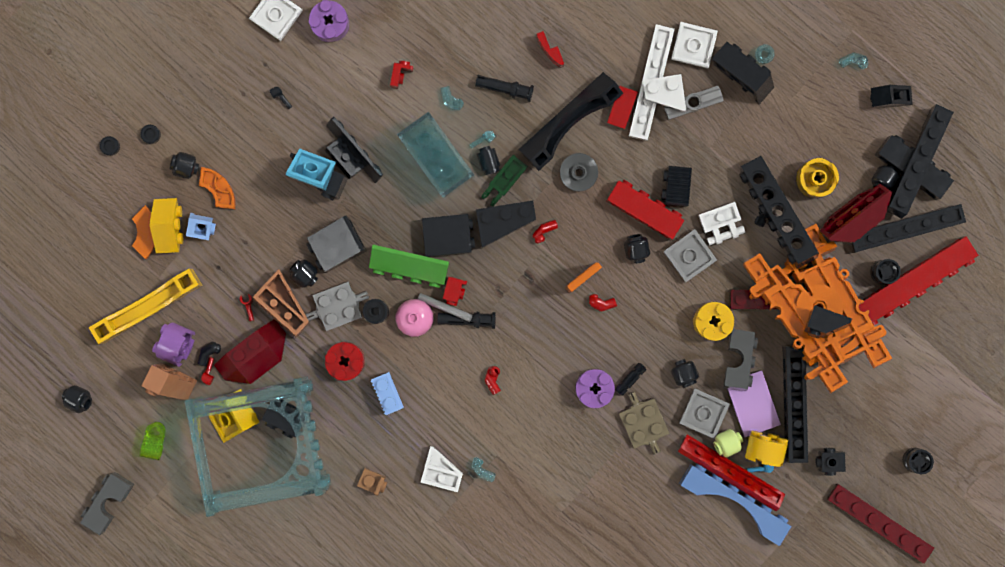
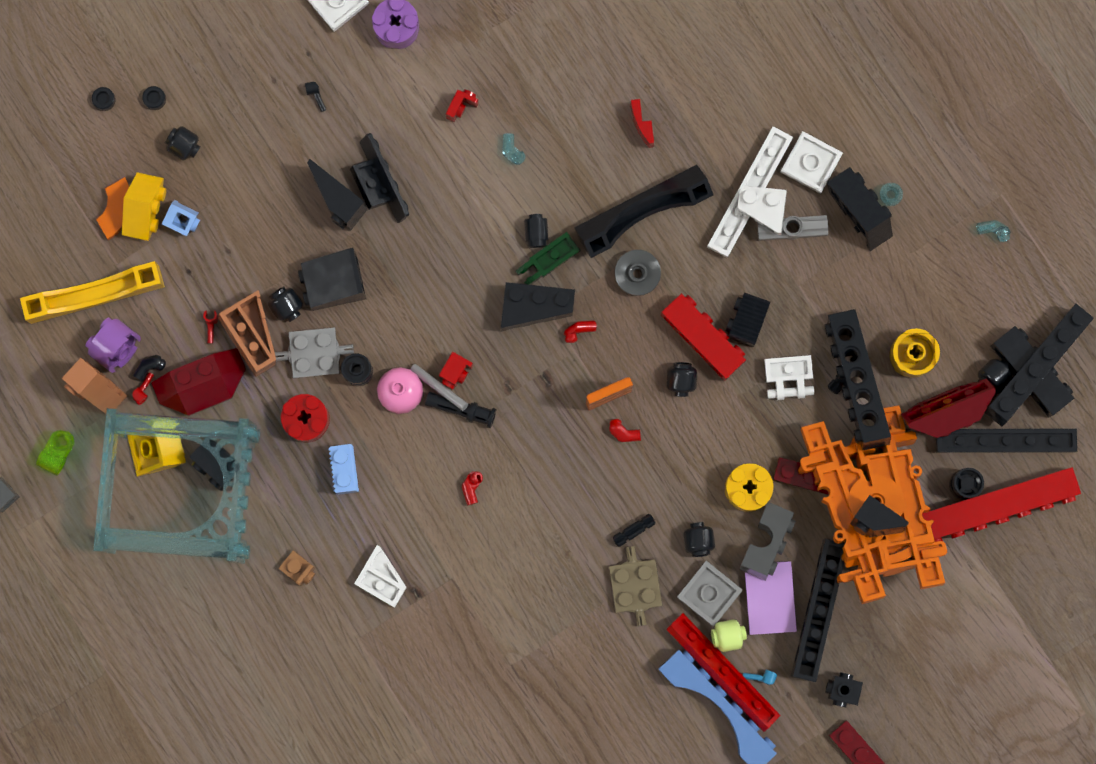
camera: 25 degrees right, 5 degrees down
(218, 187) = (215, 179): orange tile -> none
(311, 169) = (327, 184): medium azure slope -> none
(408, 265) = (410, 326): bright green slope -> none
(435, 155) = (475, 207): clear light blue brick -> none
(448, 235) = (465, 304): black panel -> none
(481, 472) = (428, 592): clear light blue arm -> none
(489, 136) = (543, 202): clear light blue hand -> none
(513, 89) = (588, 158): black pin -> none
(602, 380) = (576, 535): medium lavender brick -> none
(622, 108) = (708, 212): red slope -> none
(690, 255) = (741, 404): light grey plate -> none
(766, 448) = (771, 653): yellow brick -> none
(891, 96) = (1026, 281): black slope -> none
(918, 461) = (948, 717): black wheel -> none

